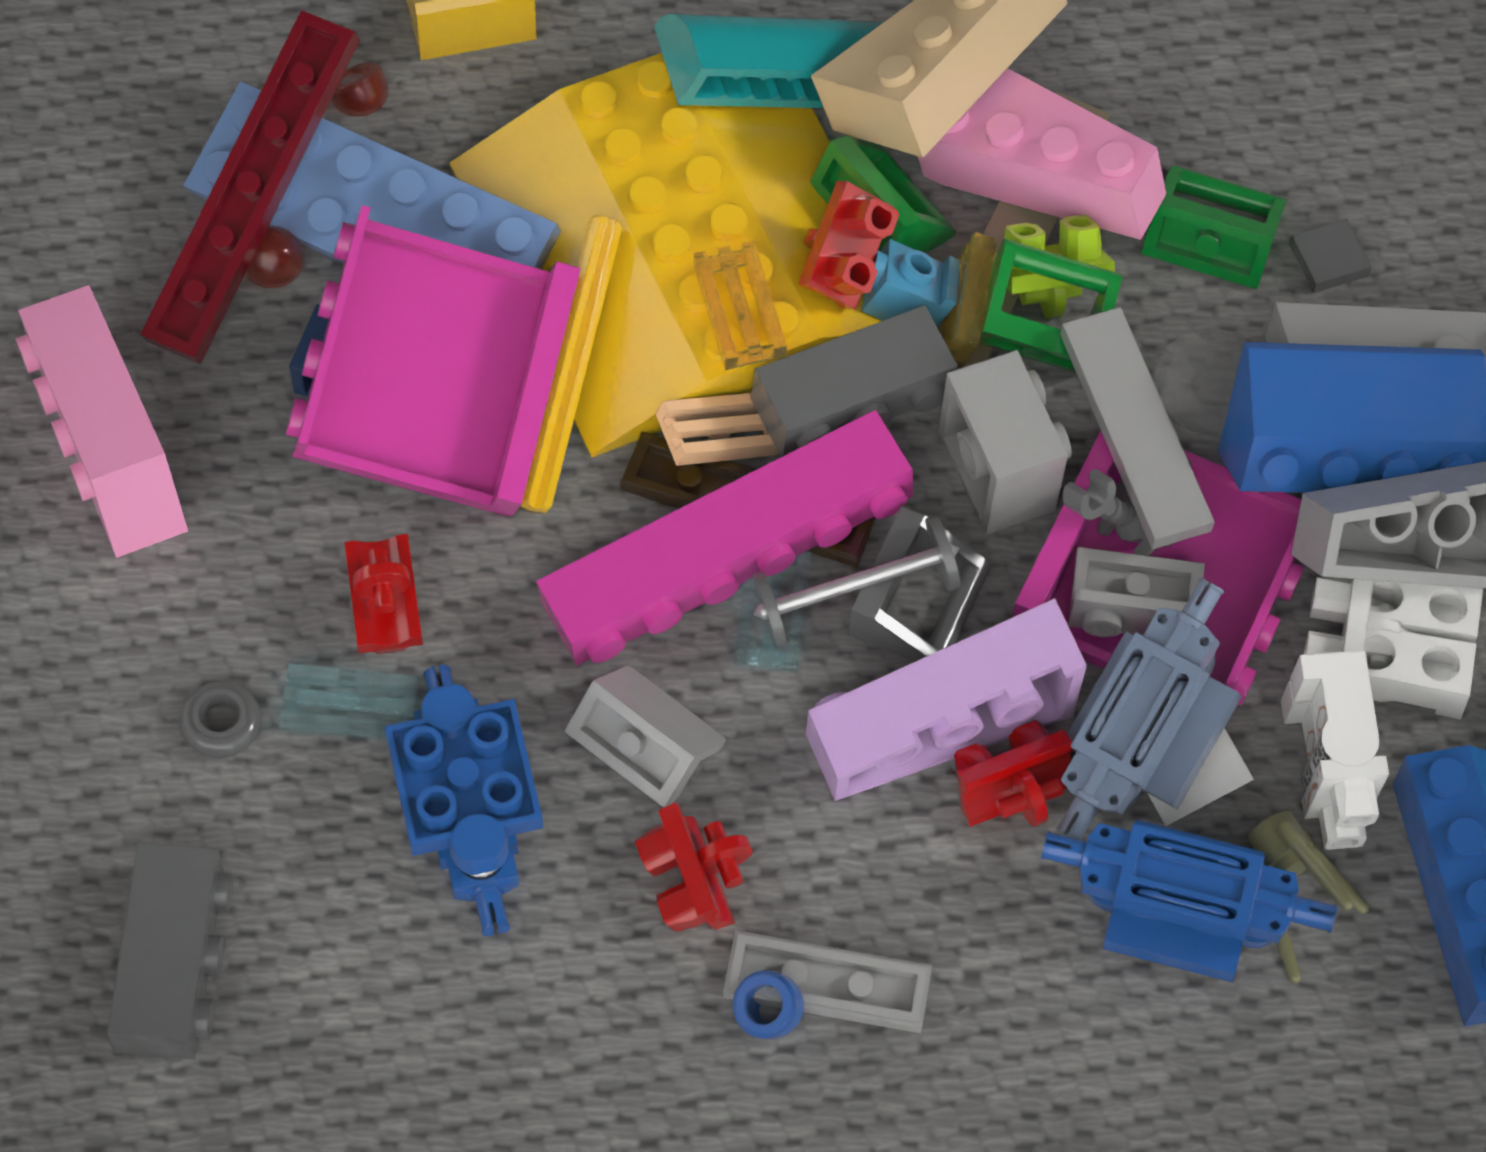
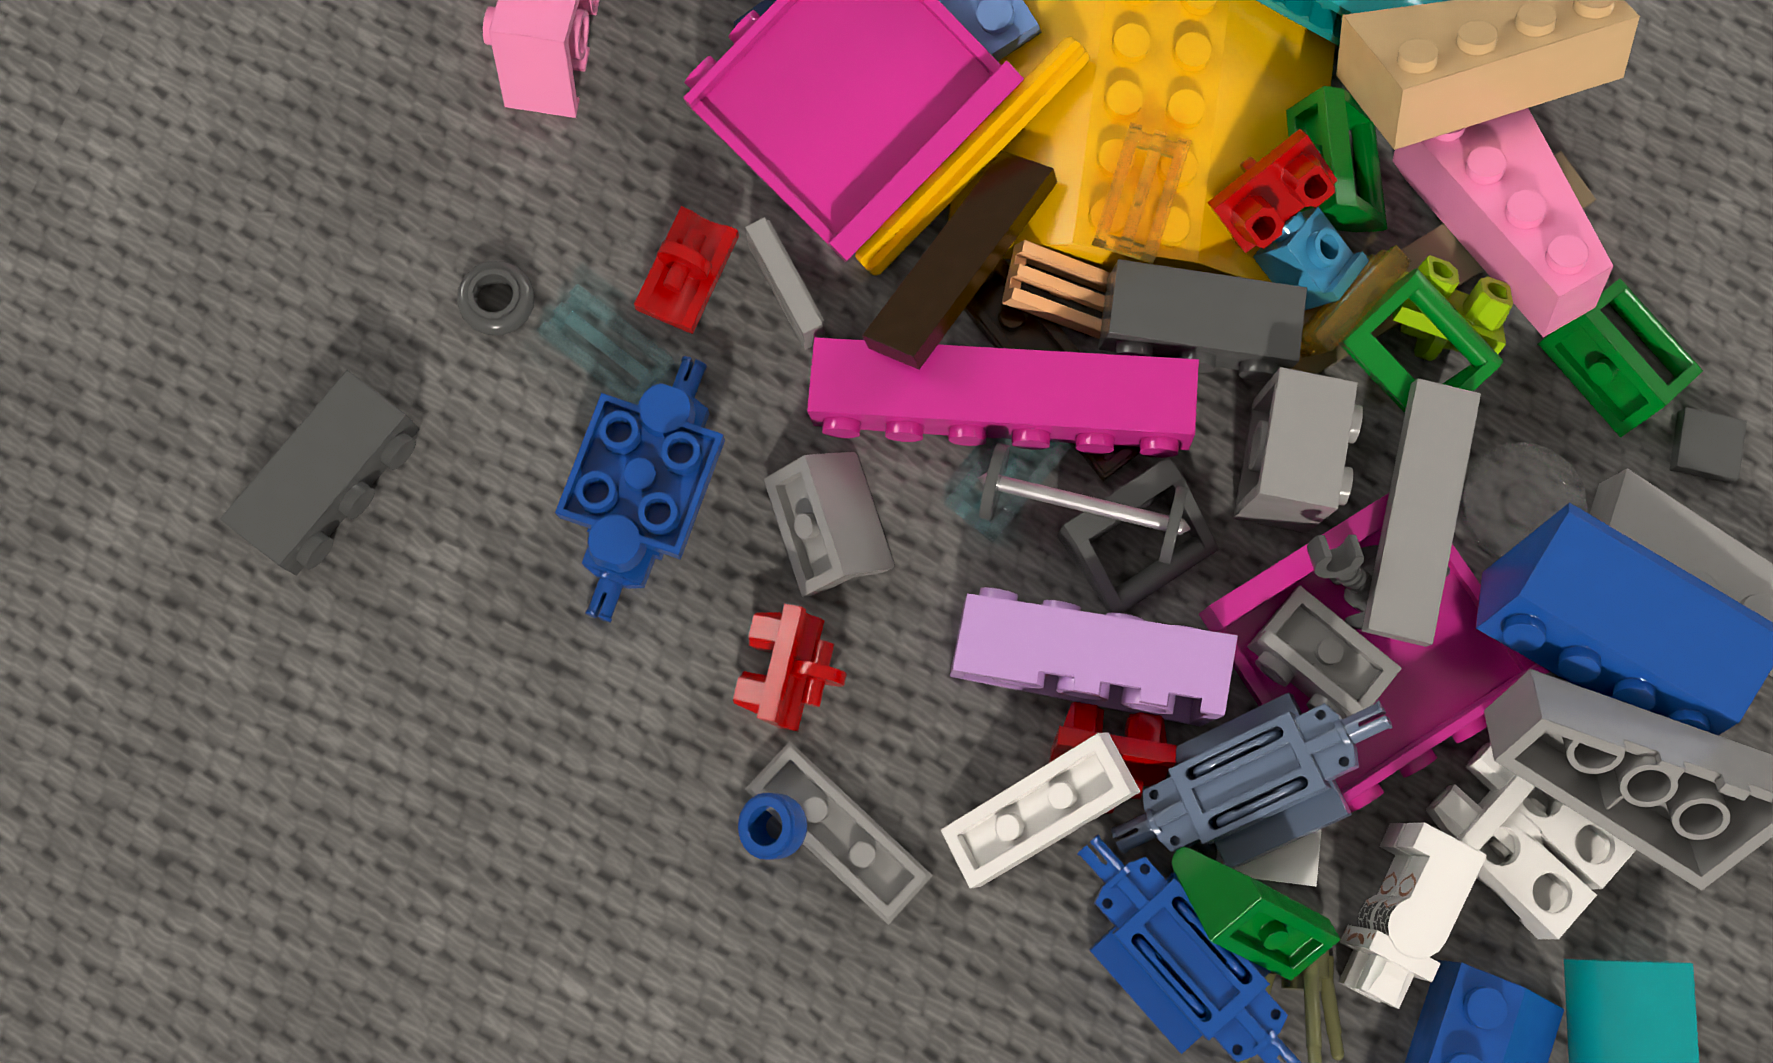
camera: 30 degrees right, 15 degrees up
(476, 557) = (785, 282): none -> light grey tile
(620, 445) = (960, 259): none -> dark brown tile
(986, 848) = (1040, 810): none -> white plate
(1216, 811) = (1252, 916): none -> green tile

